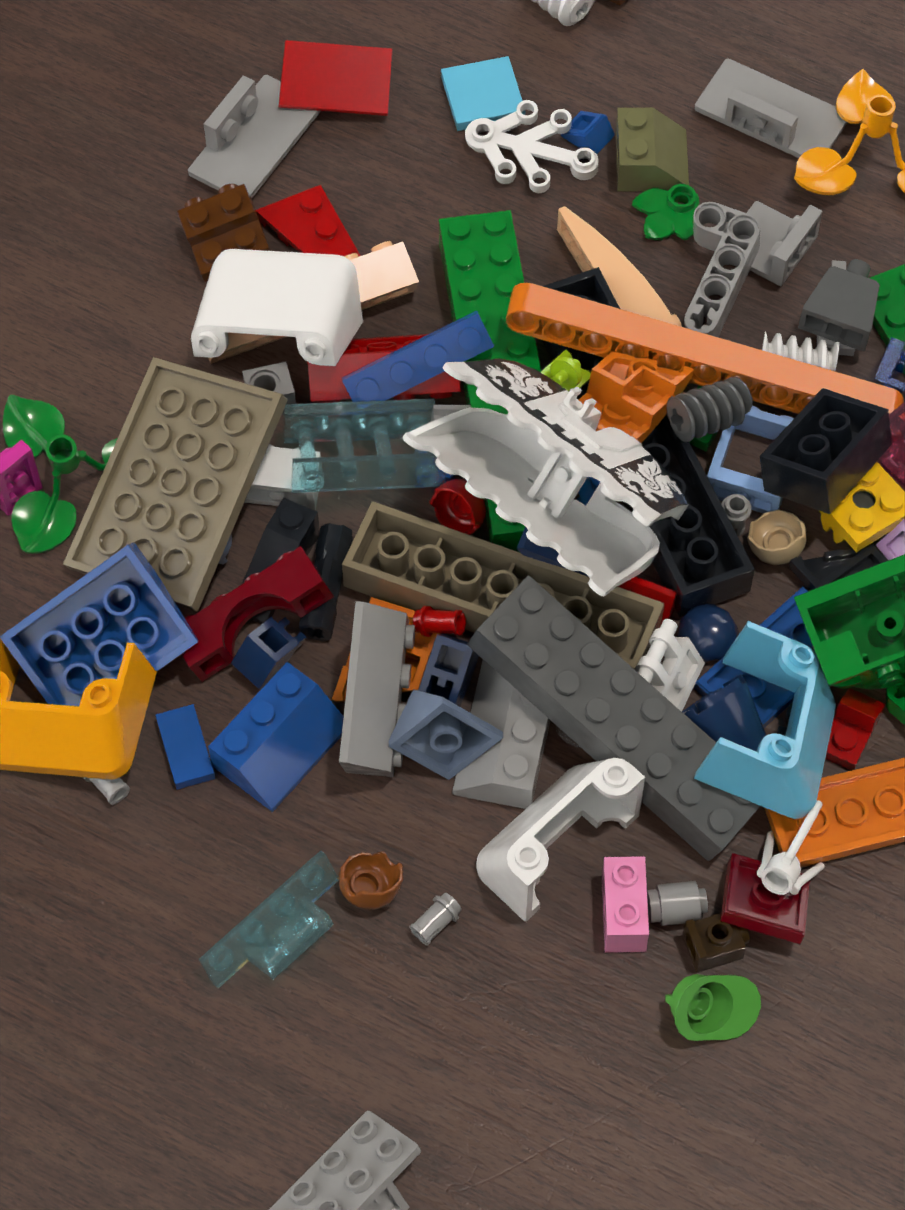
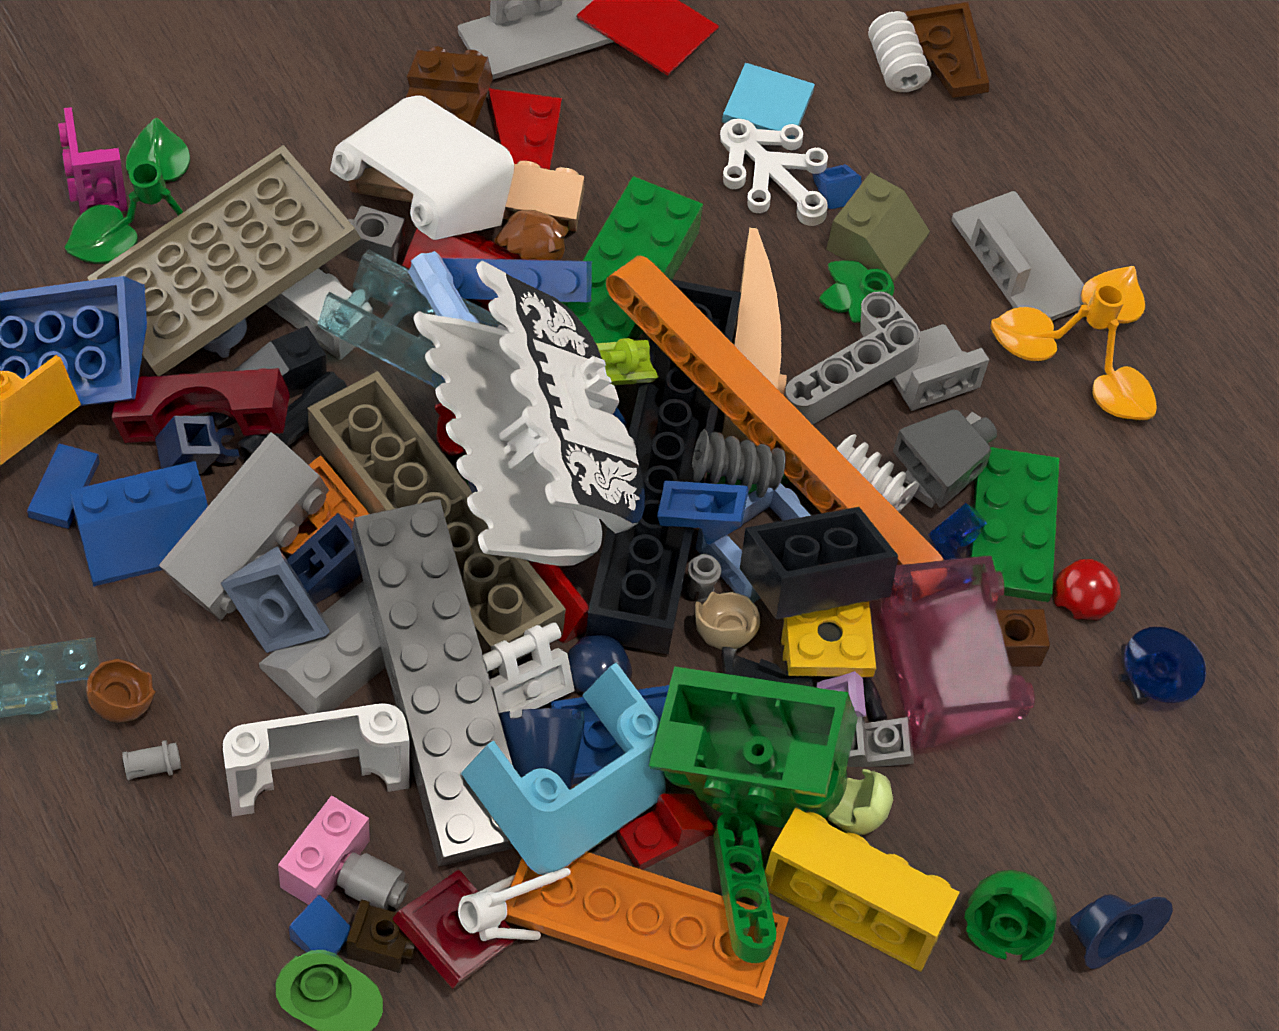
camera: 25 degrees right, 5 degrees down
(366, 402) = (436, 285): none -> light blue axle
(396, 316) = (533, 236): none -> dark orange hair
(438, 621) = (352, 504): red pin -> none
(633, 392) = (673, 412): orange slope -> none
(665, 964) = (319, 928): none -> blue slope
(713, 457) = (712, 507): none -> blue slope

